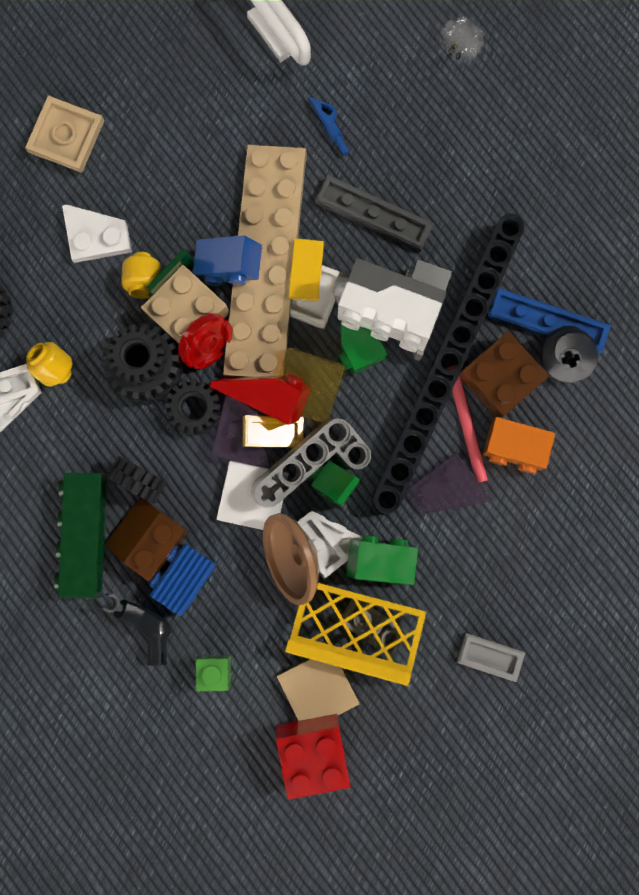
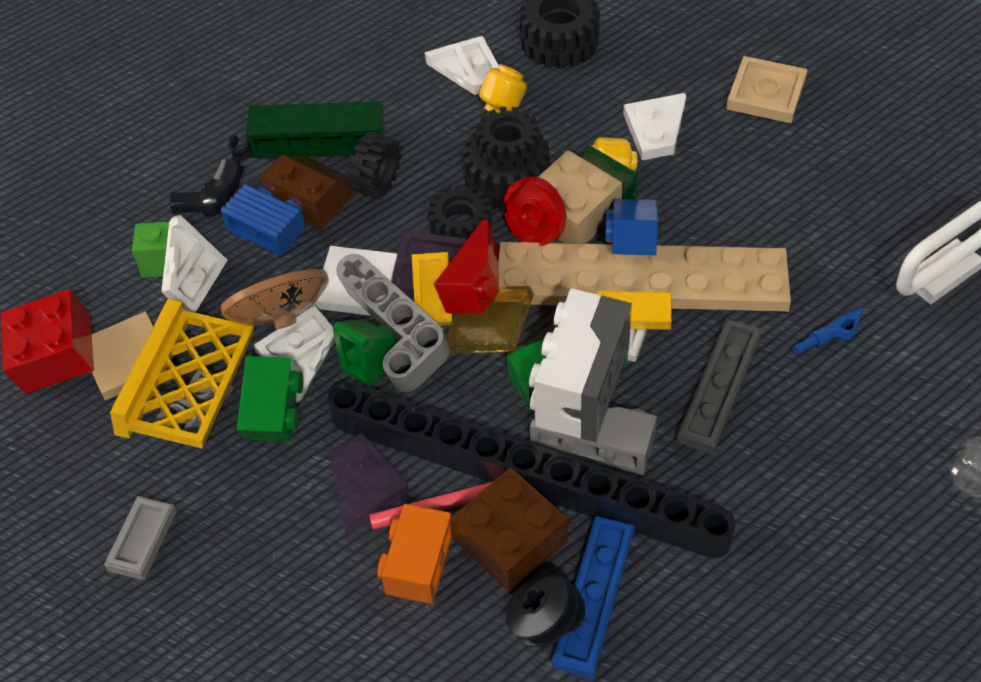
camera: 90 degrees right, 30 degrees down
(238, 640) = (189, 264): none -> white wing

